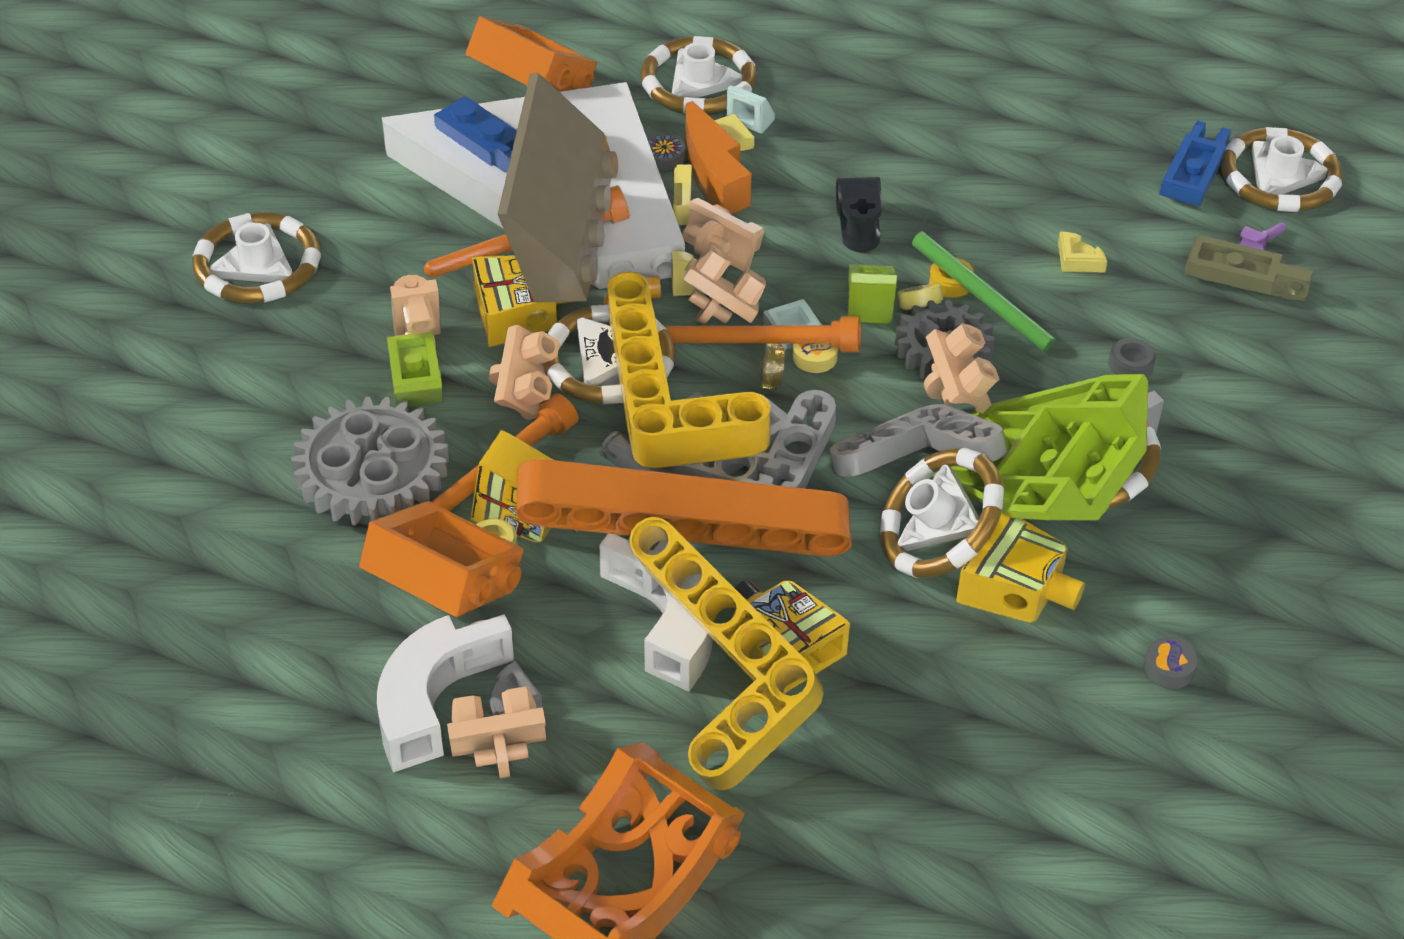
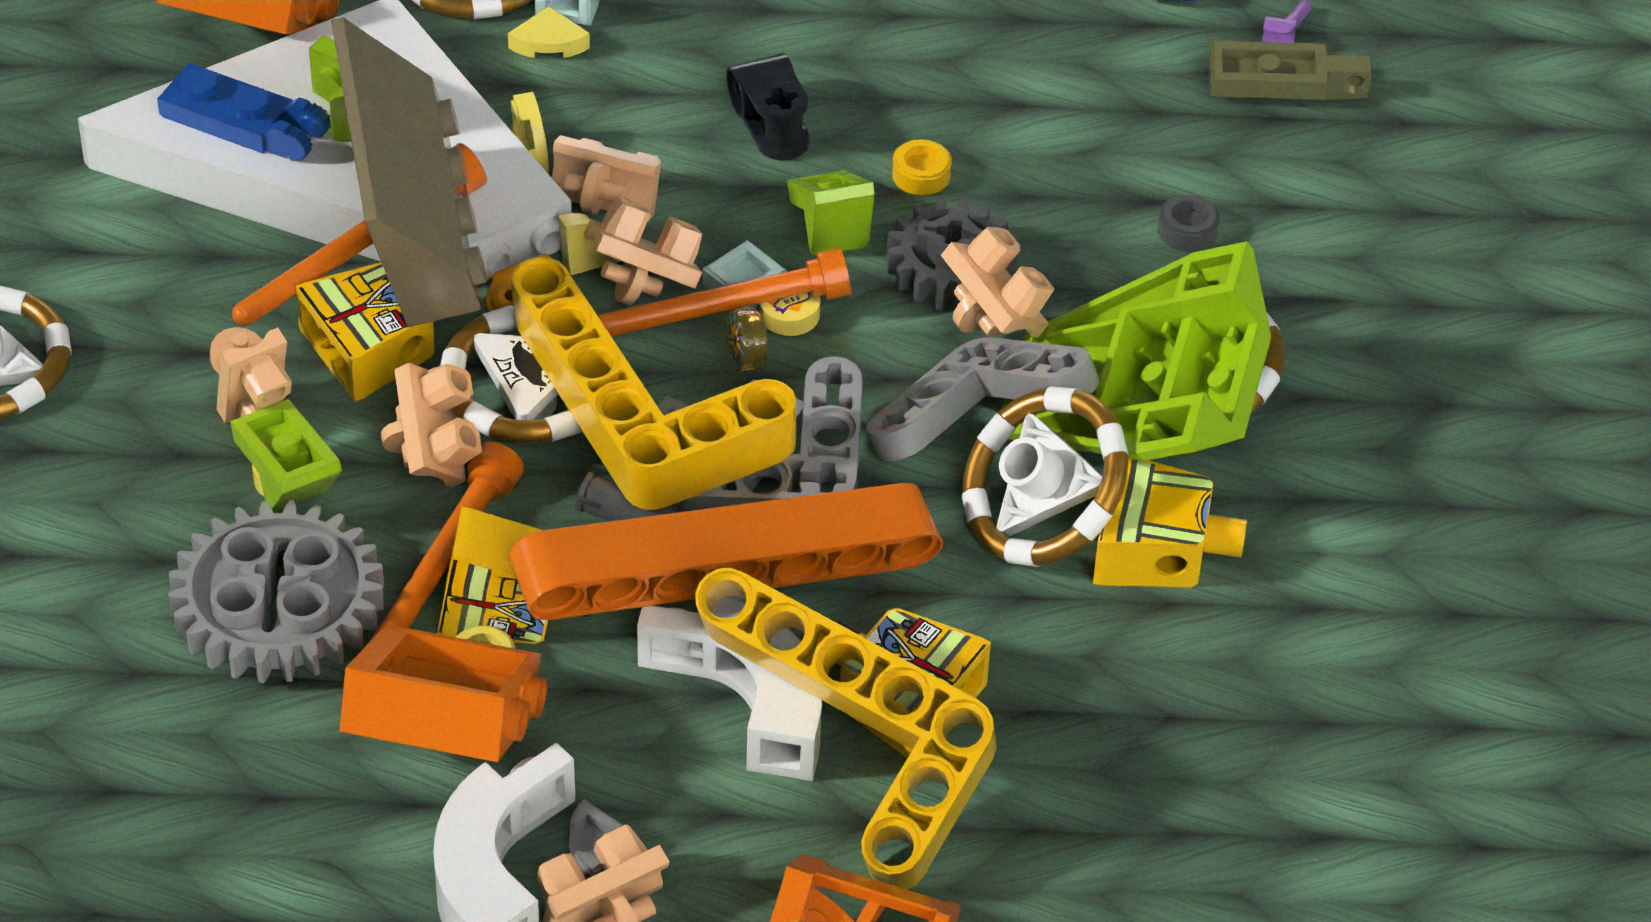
camera: 20 degrees left, 0 degrees up
(667, 151) = (483, 74): tile -> none
(716, 161) = (554, 69): orange slope -> none
(920, 296) = (897, 201): light yellow tile -> none
(983, 291) = (973, 176): bright green bar -> none
(1079, 256) = (1069, 101): light yellow tile -> none
(1170, 662) = (1379, 592): dark grey tile -> none

